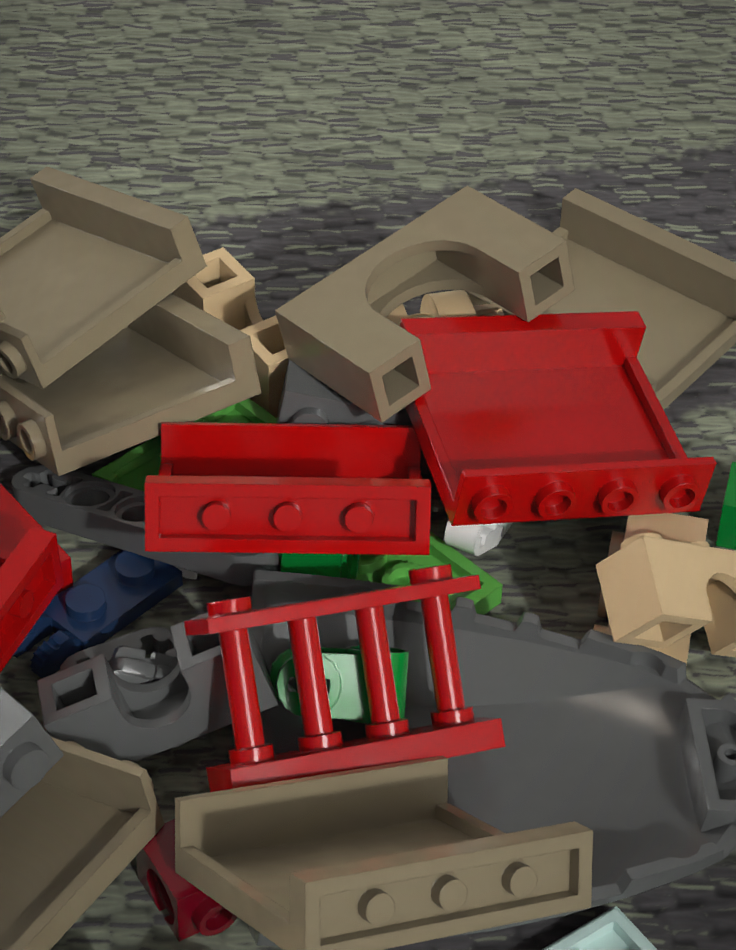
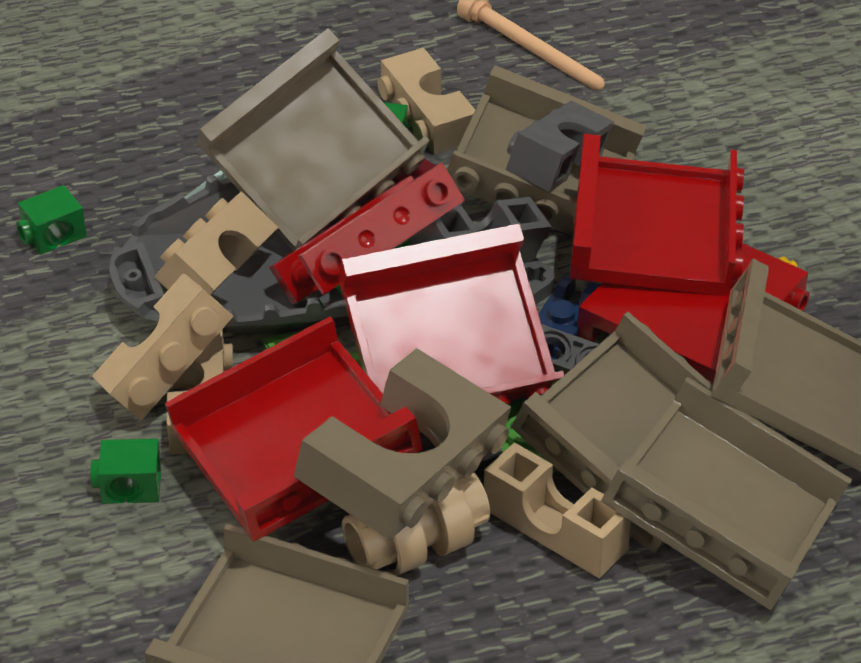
camera: 165 degrees right, 0 degrees up
(629, 730) = (217, 246): none -> tan arch

